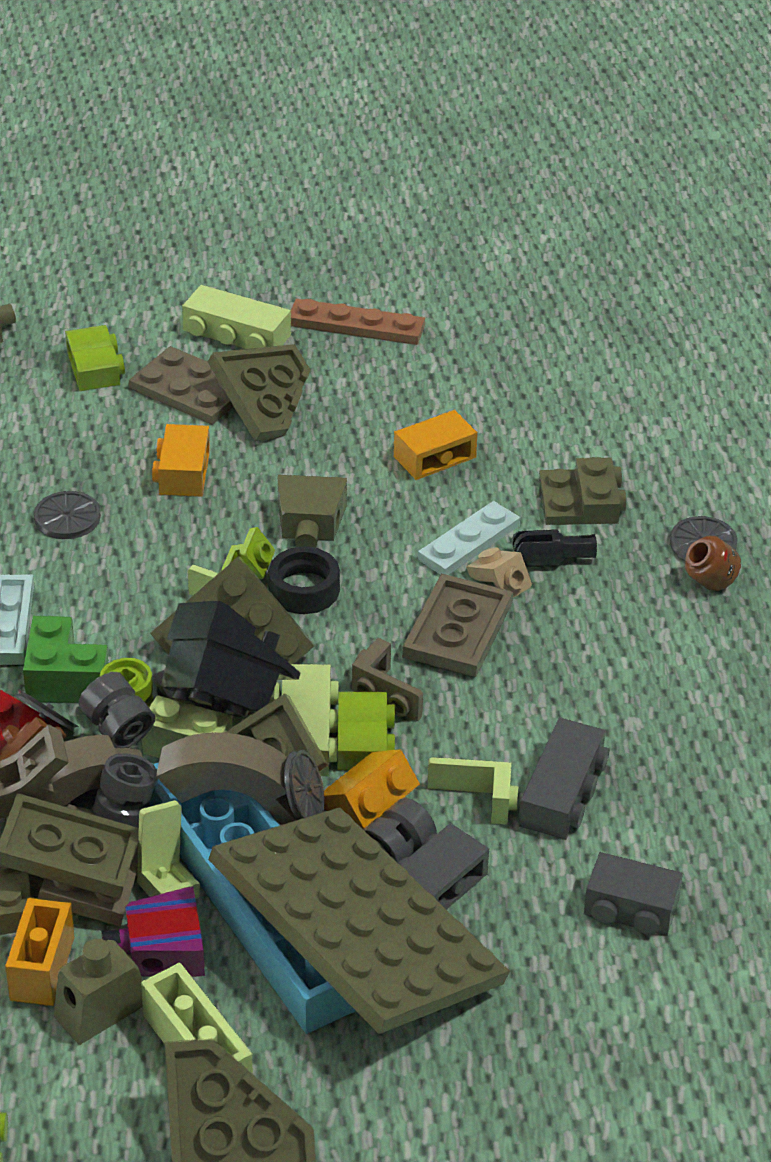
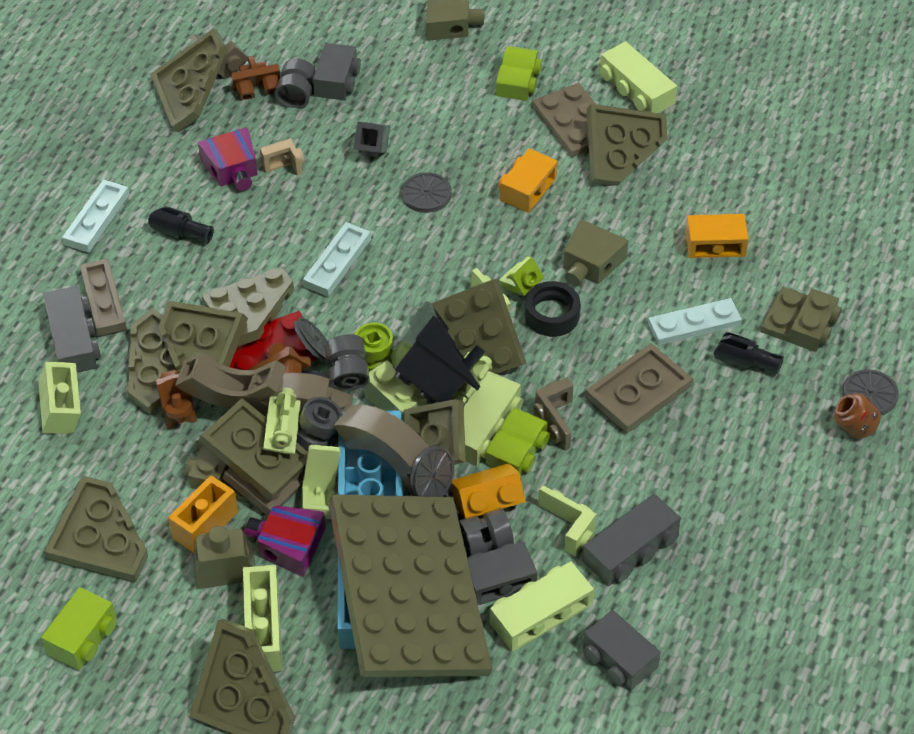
camera: 30 degrees right, 10 degrees up
(55, 665) = (344, 304): bright green brick -> none
(85, 800) = (282, 422): none -> yellowish green hinge
(357, 321) = (729, 110): nougat plate -> none
(502, 568) = (698, 358): tan bracket -> none
(511, 885) = (541, 605): none -> yellowish green brick

